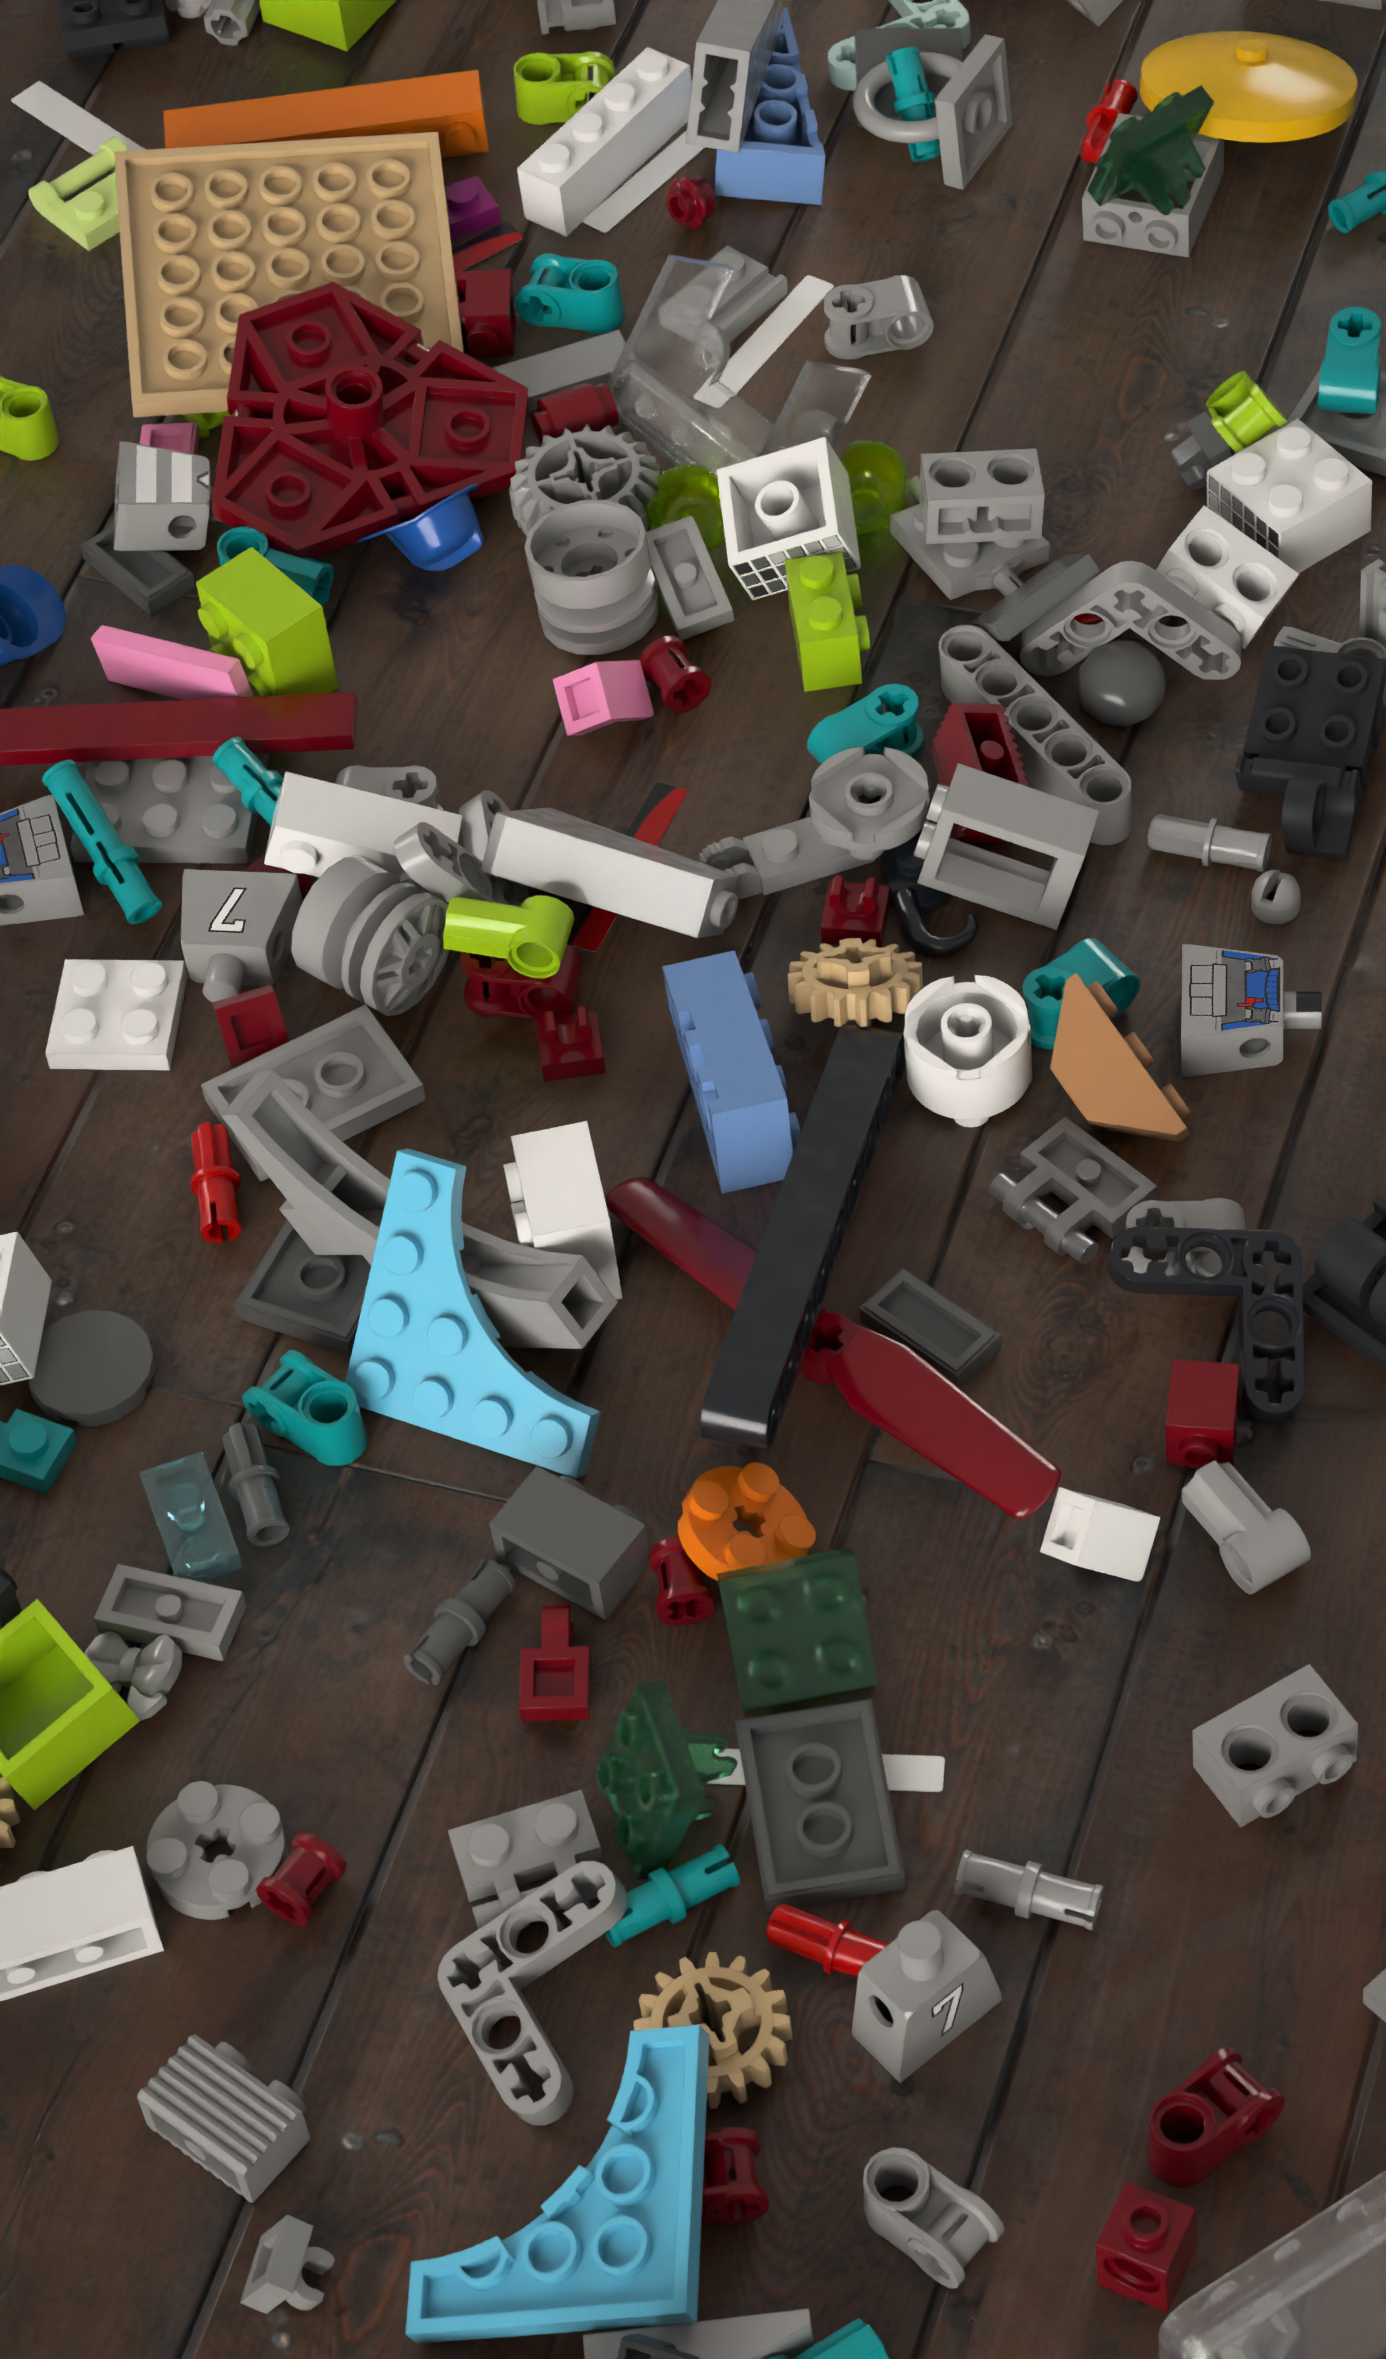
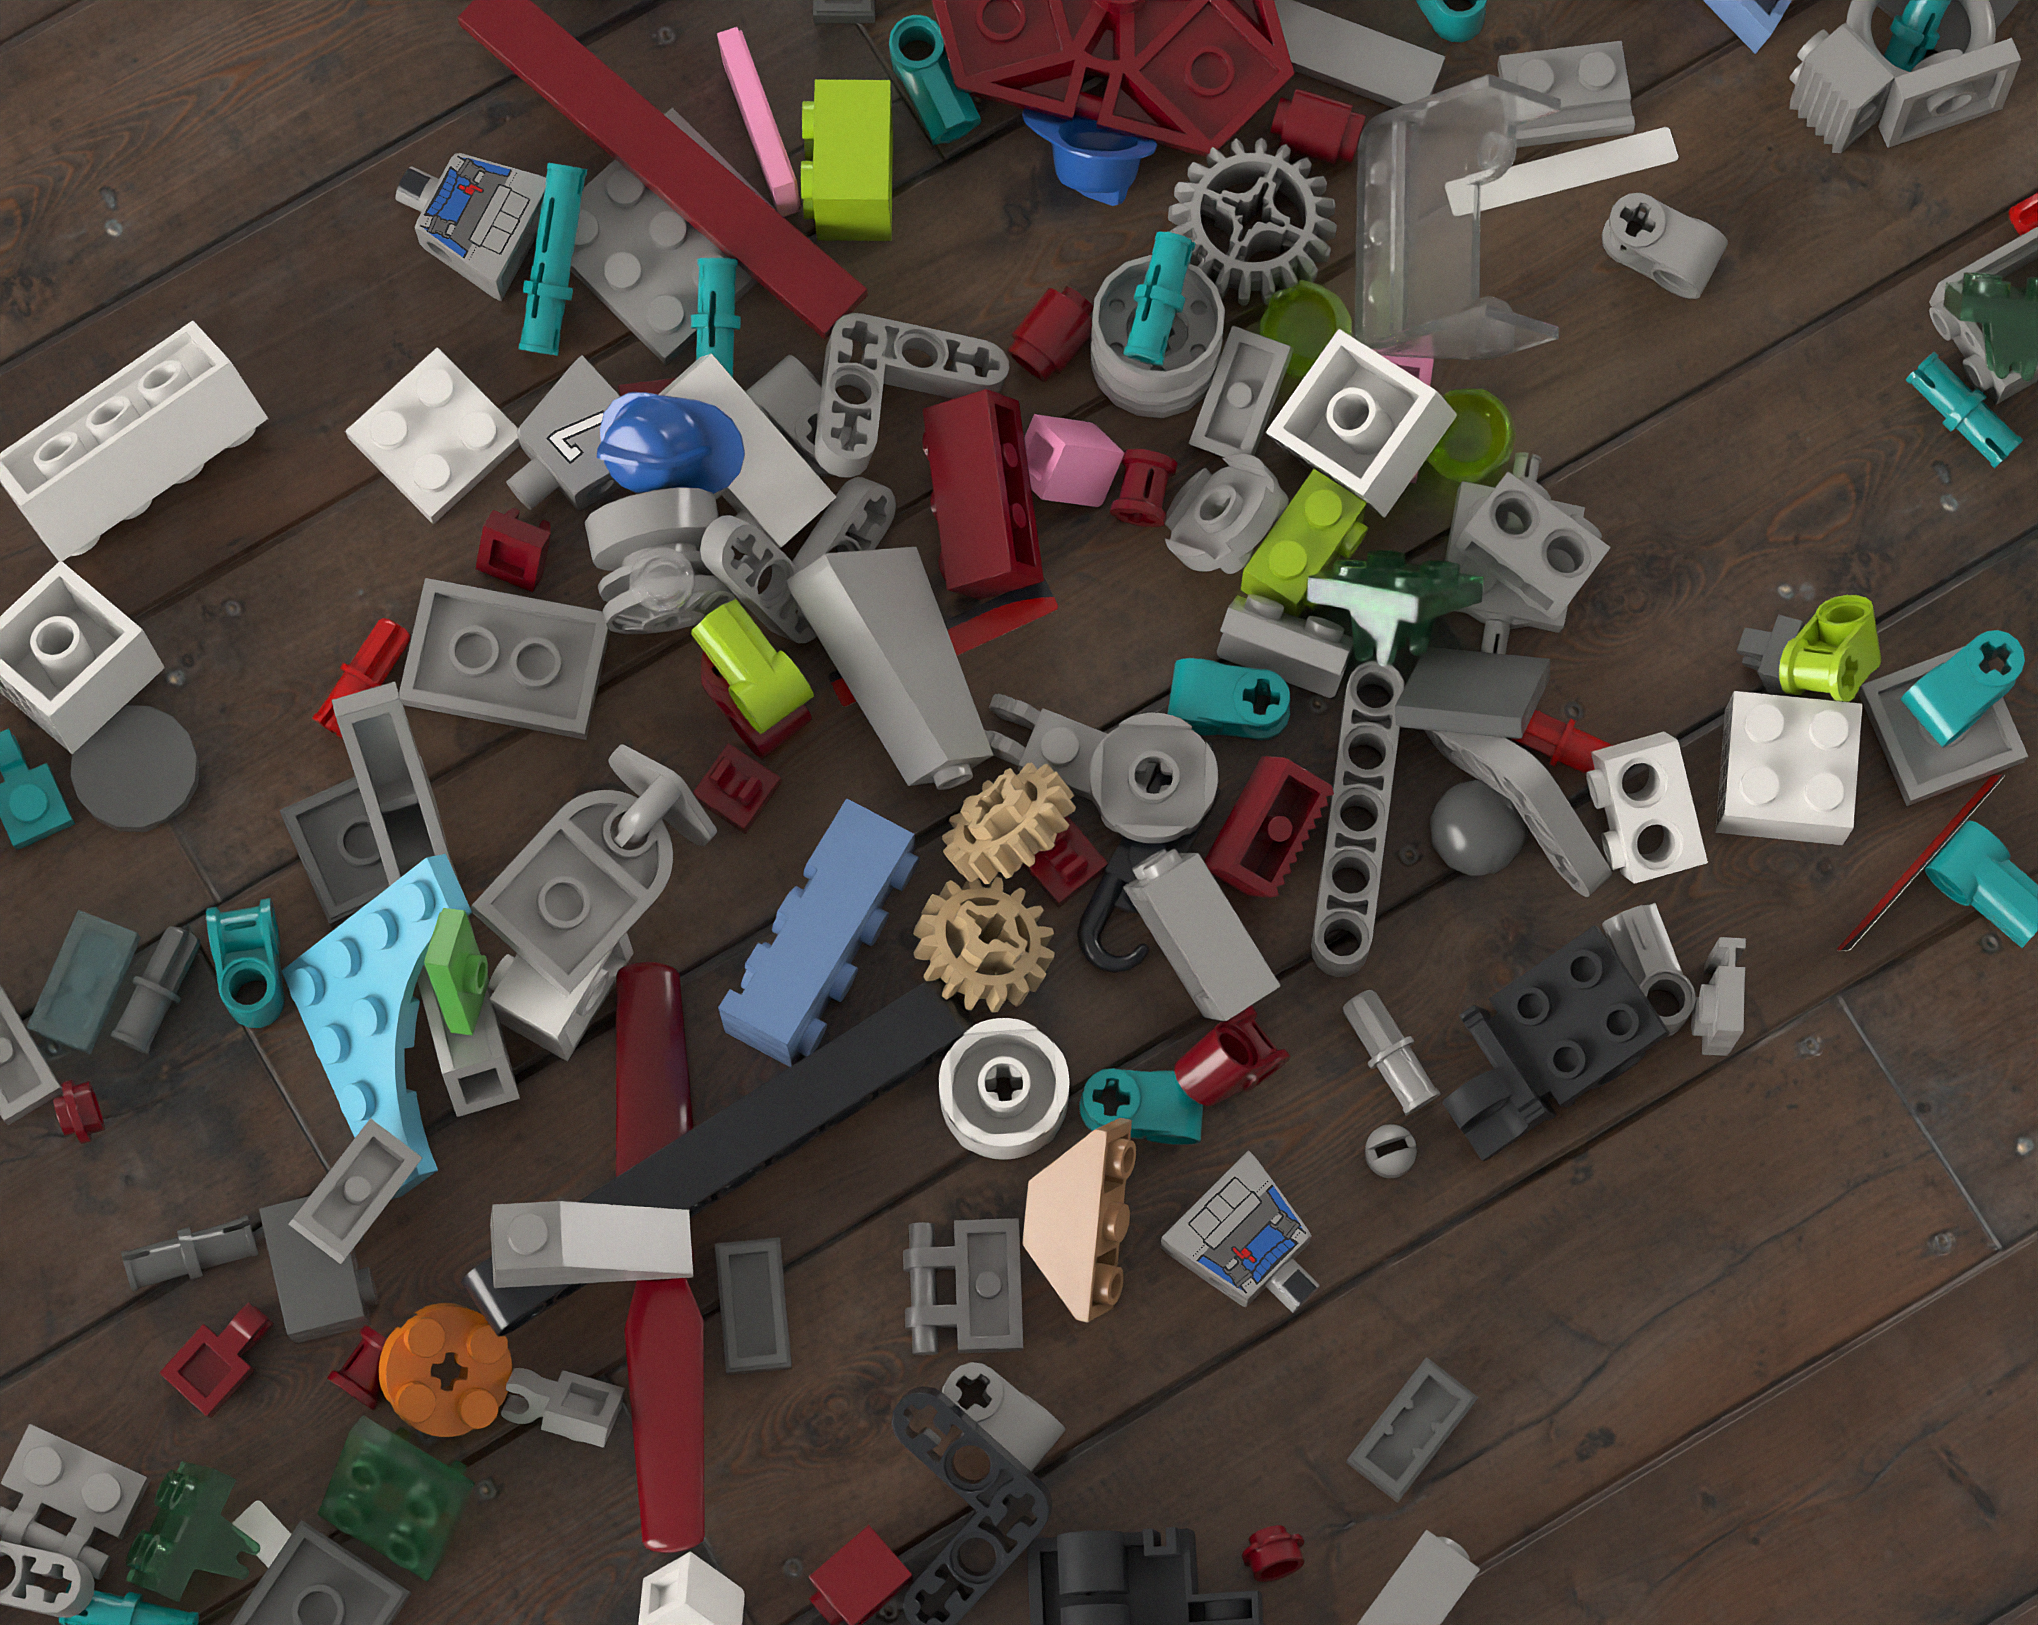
camera: 35 degrees right, 25 degrees up
(274, 1597) = (79, 1111): none -> dark red plate
(302, 842) = (669, 443): none -> blue piece
(394, 901) = (662, 580): none -> clear plate
(414, 731) = (882, 364): none -> light grey beam
(495, 1212) = (457, 971): none -> bright green plate
(513, 642) = (1052, 333): none -> dark red brick
(530, 1078) = (587, 886): none -> light grey plate
(555, 1443) = (355, 1191): none -> light grey plate
(564, 750) = (982, 495): none -> dark red brick
(575, 524) = (1159, 298): none -> teal pin
(750, 638) = (1249, 504): none -> light grey plate
(764, 1316) = (587, 1243): none -> light grey slope
(795, 896) = (1008, 823): none -> tan gear
(852, 670) = (1299, 650): none -> light grey bracket
(869, 1481) = (571, 1407): none -> light grey plate
(901, 155) = (1840, 86): none -> light grey brick
(921, 583) = (1393, 599): none -> clear green plate
(1109, 907) = (1229, 1060): none -> dark red piece
(1174, 263) = (1964, 409): none -> teal pin

